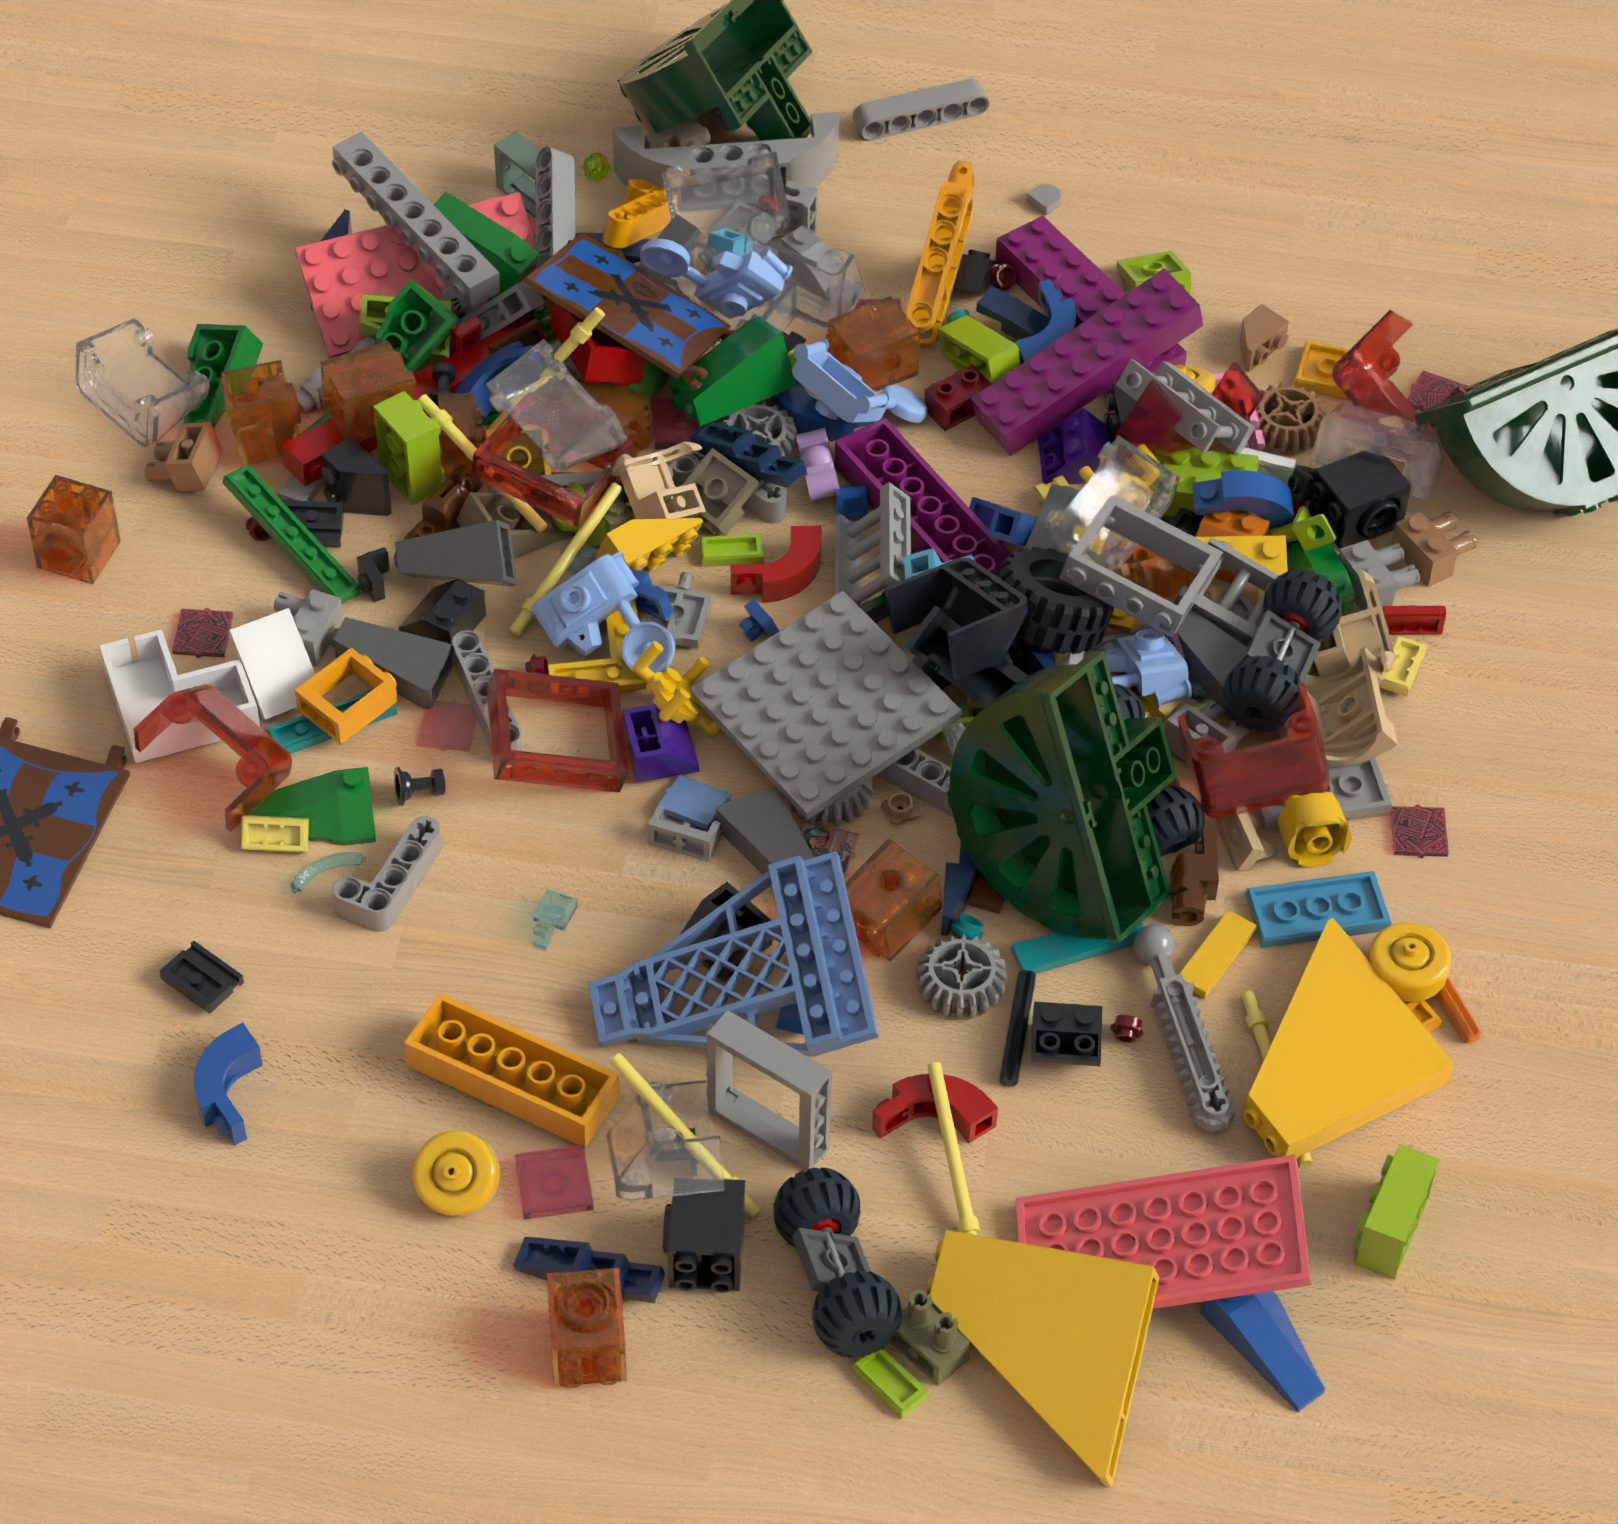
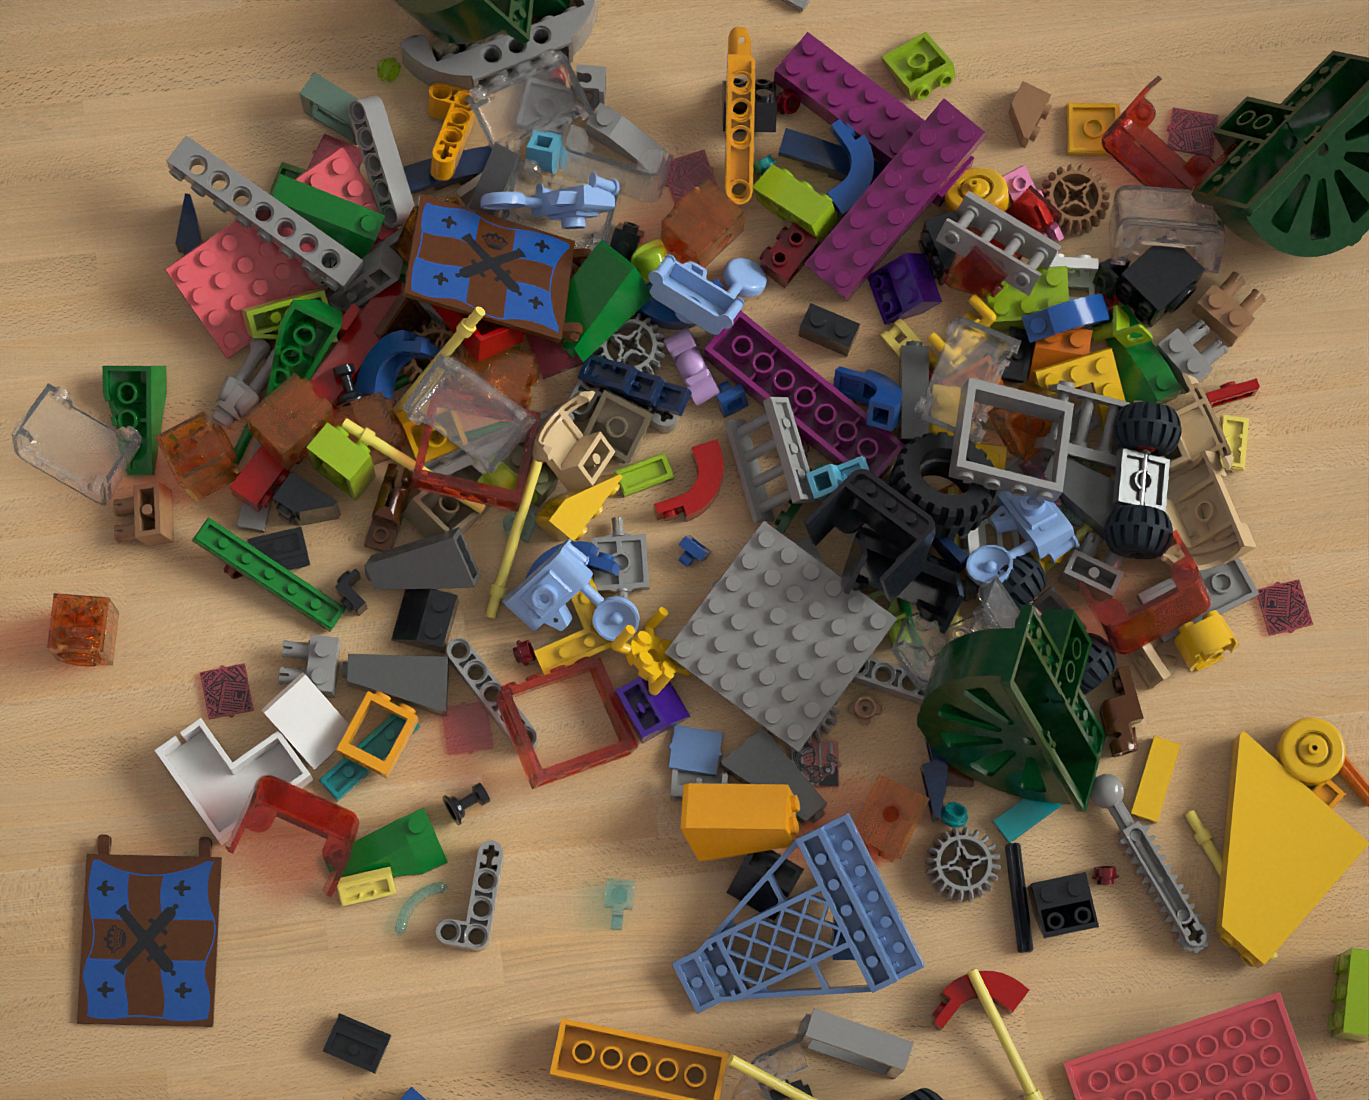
camera: 20 degrees left, 25 degrees up
(709, 850) = (738, 818): none -> light orange slope
(979, 466) = (828, 329): none -> black brick
(1301, 909) = (1223, 710): dark azure tile -> none

